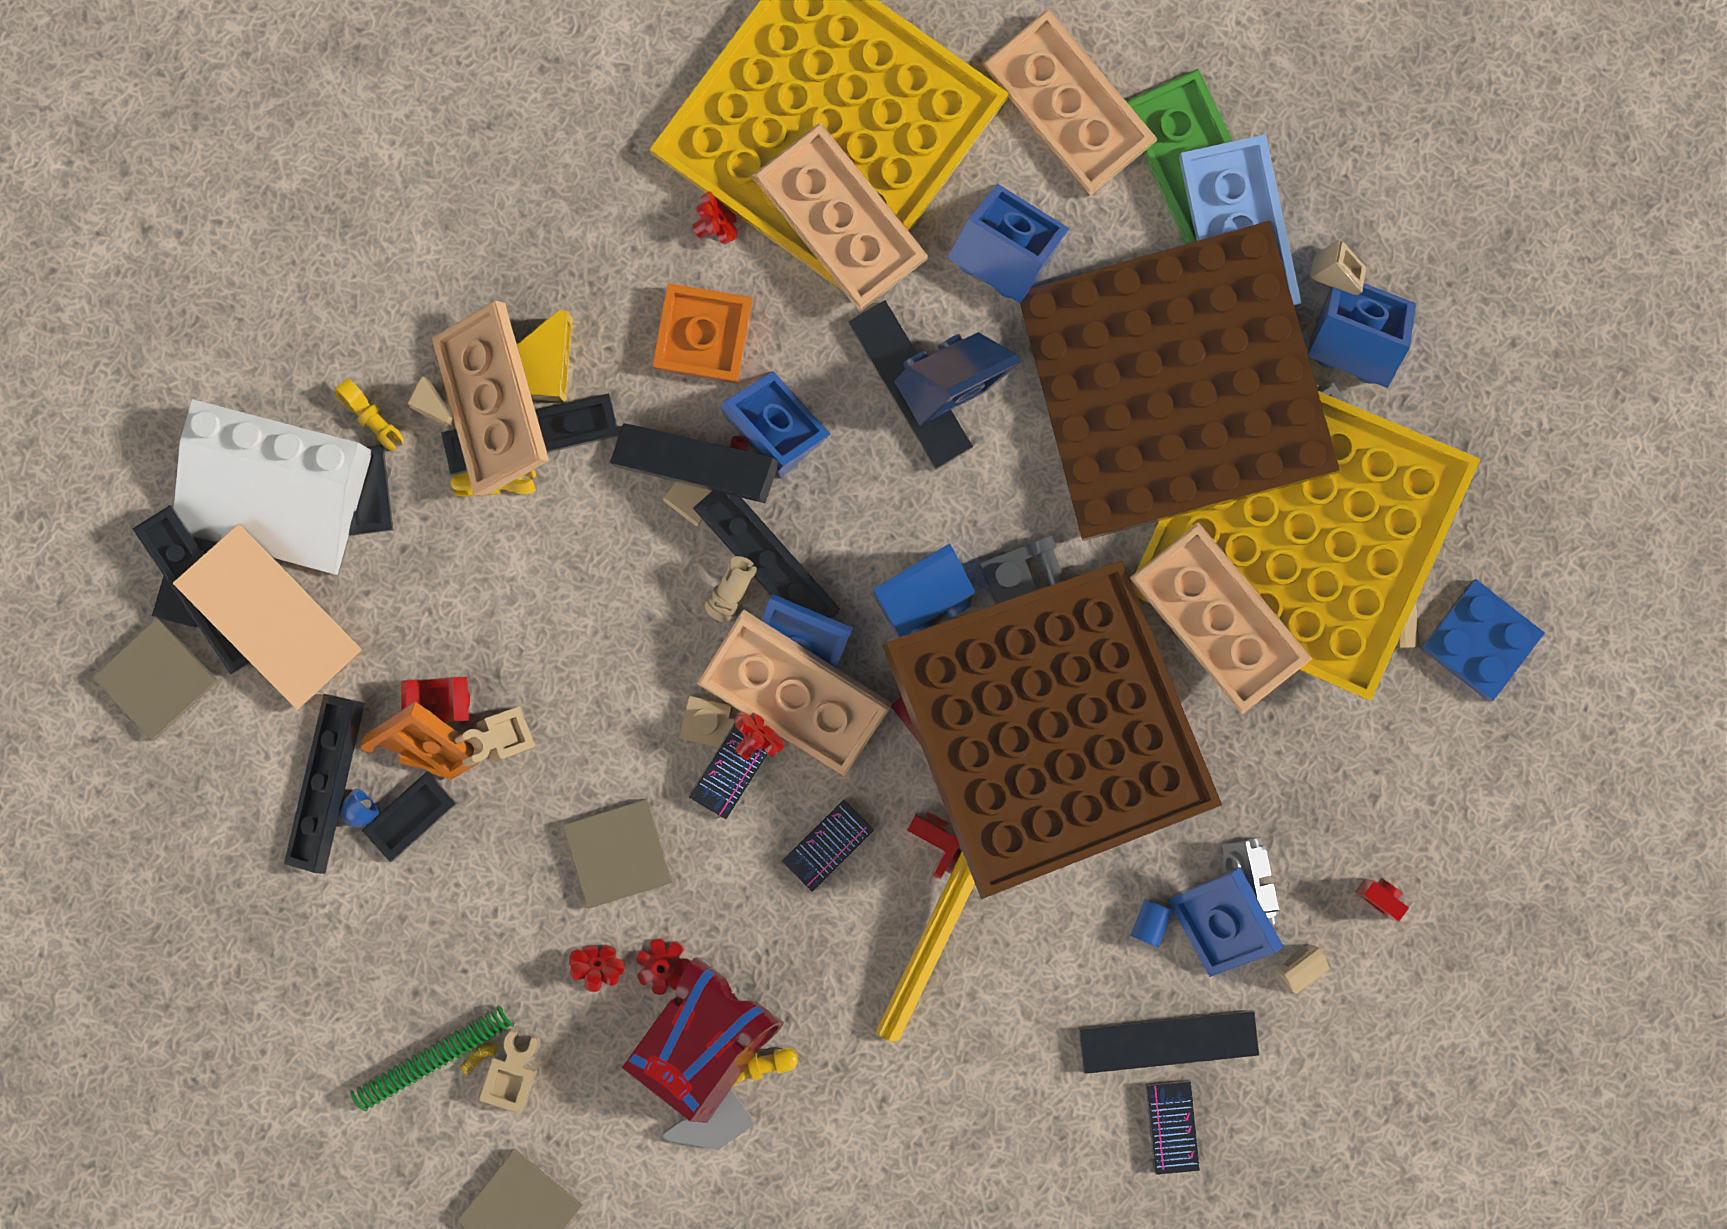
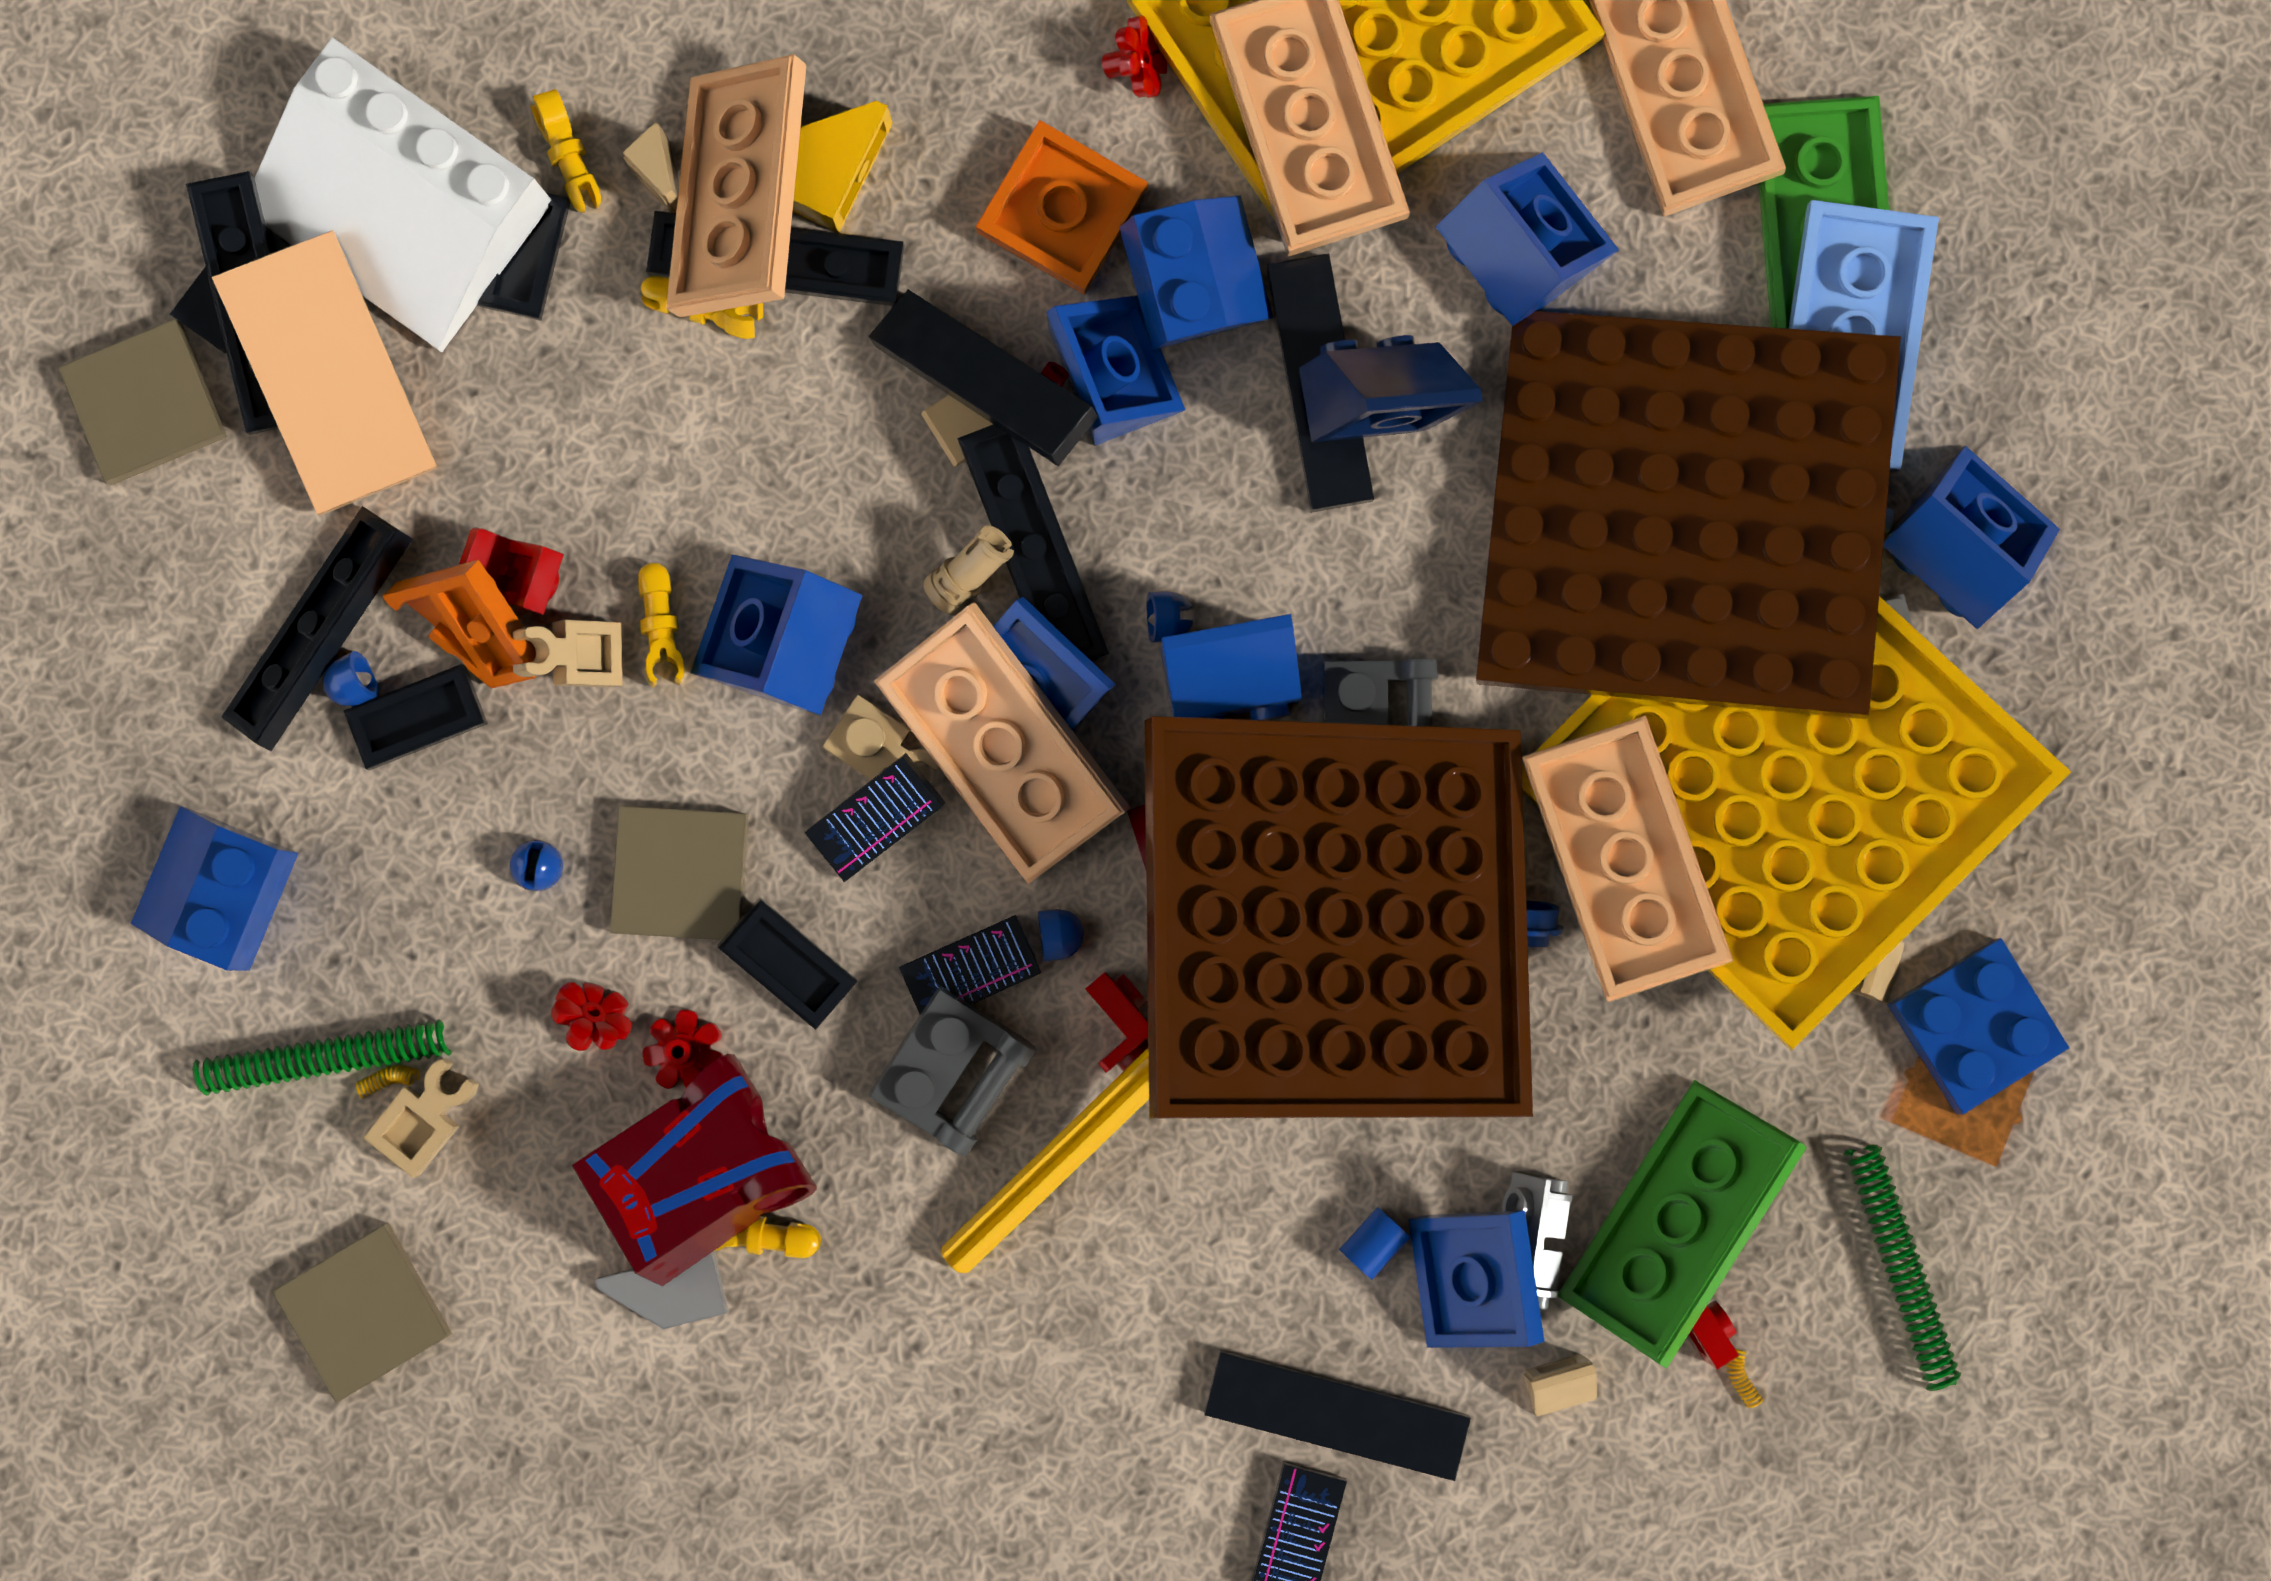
camera: 20 degrees right, 0 degrees up
(321, 977) = (213, 891): none -> blue slope
(531, 881) = (546, 869): none -> blue hinge
(543, 696) = (658, 622): none -> yellow piece
(622, 676) = (777, 633): none -> blue slope
(709, 885) = (787, 963): none -> black tile
(756, 736) = (927, 782): red plant -> none
(804, 343) = (1195, 270): none -> blue slope
(827, 909) = (934, 1059): none -> dark grey plate
(868, 568) = (1167, 610): none -> blue hinge
(877, 800) = (1060, 933): none -> blue hinge
(1181, 678) = (1542, 922): none -> blue plate
(1339, 268) = (1971, 441): tan slope -> none
(1341, 837) = (1681, 1222): none -> bright green tile
(1414, 915) = (1741, 1366): none -> yellow leg
(1479, 784) = (1916, 1272): none -> green piece
(1506, 709) = (1976, 1133): none -> clear orange piece

